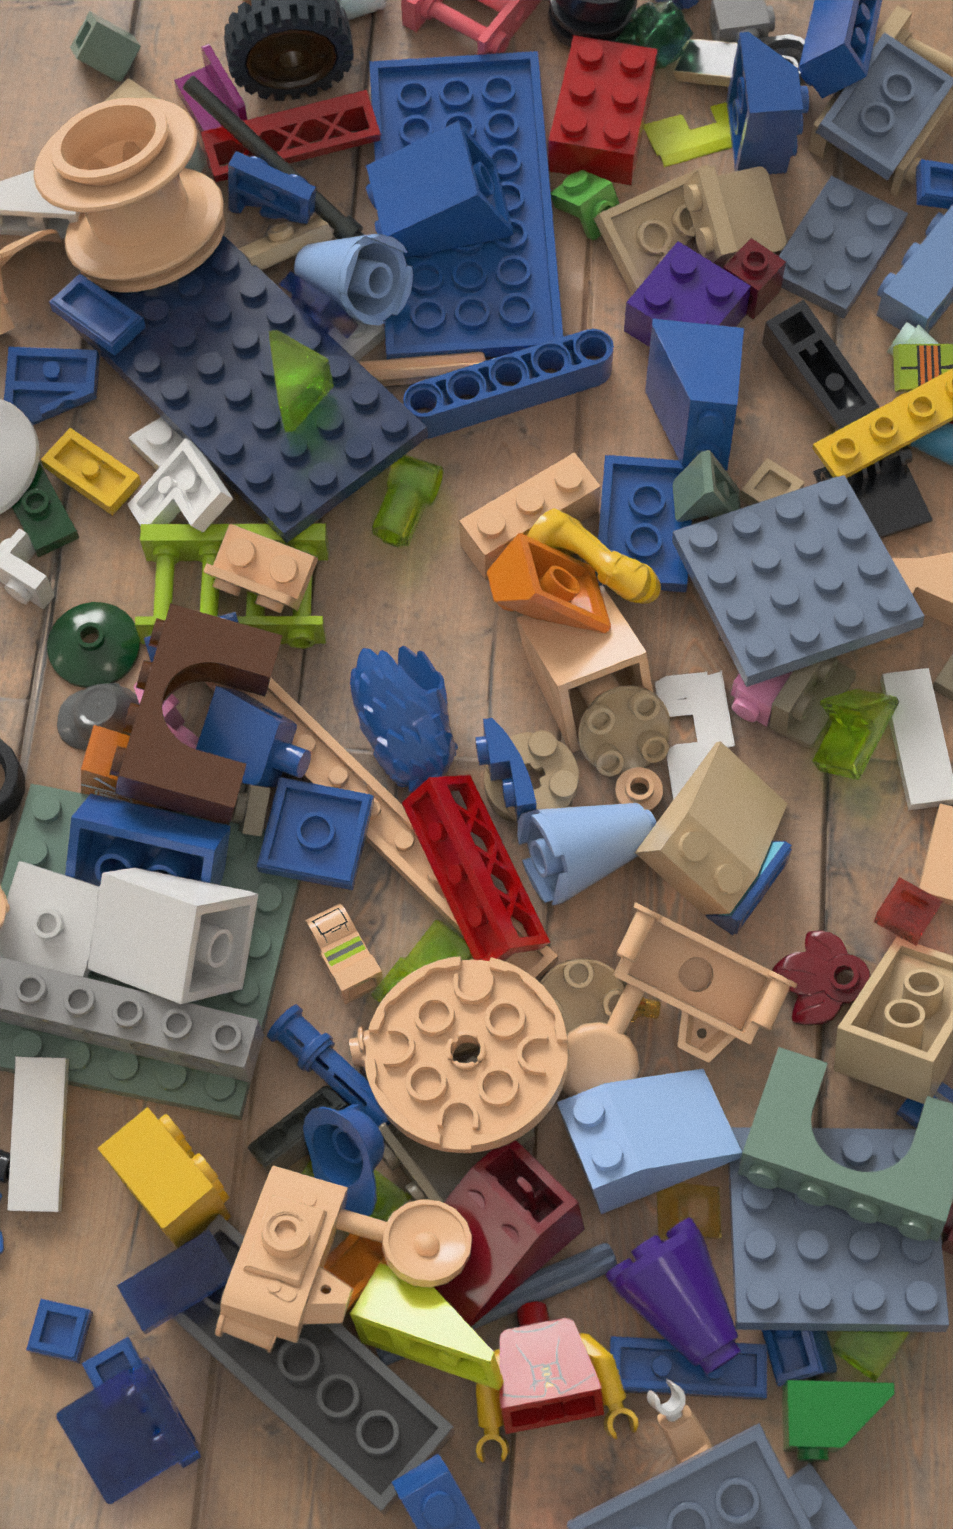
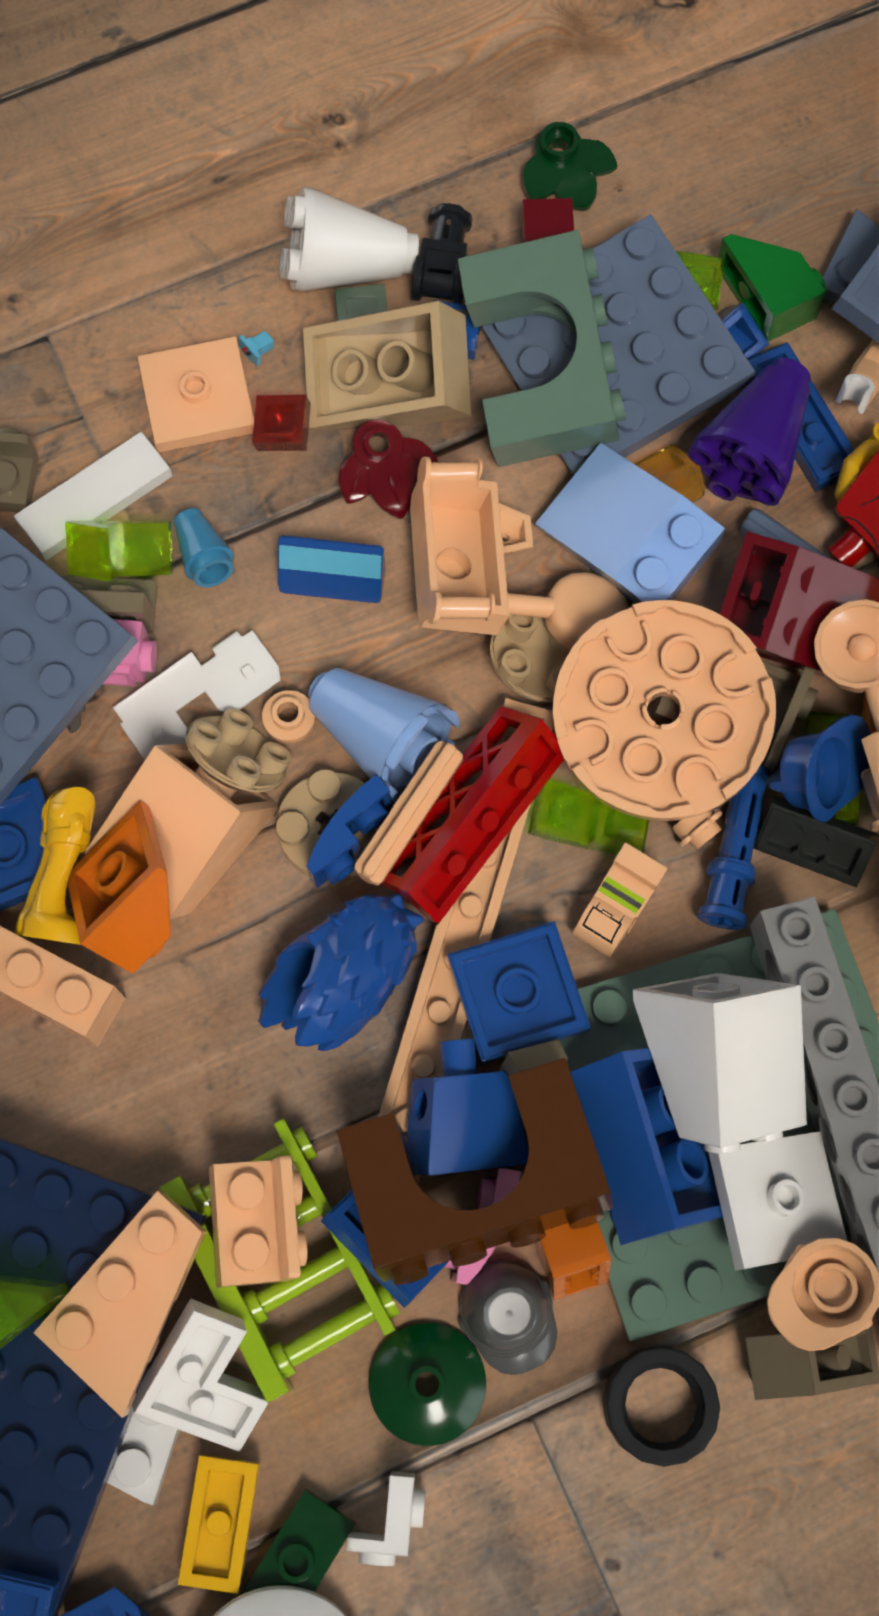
camera: 120 degrees left, 5 degrees up
(257, 457) = (120, 1305): none -> light nougat wing
(410, 488) = (77, 1126): clear neon green piece -> none
(498, 821) = (408, 813): none -> light nougat axle
(715, 833) = (301, 613): tan slope -> none
(822, 794) = (202, 549): none -> dark azure cone

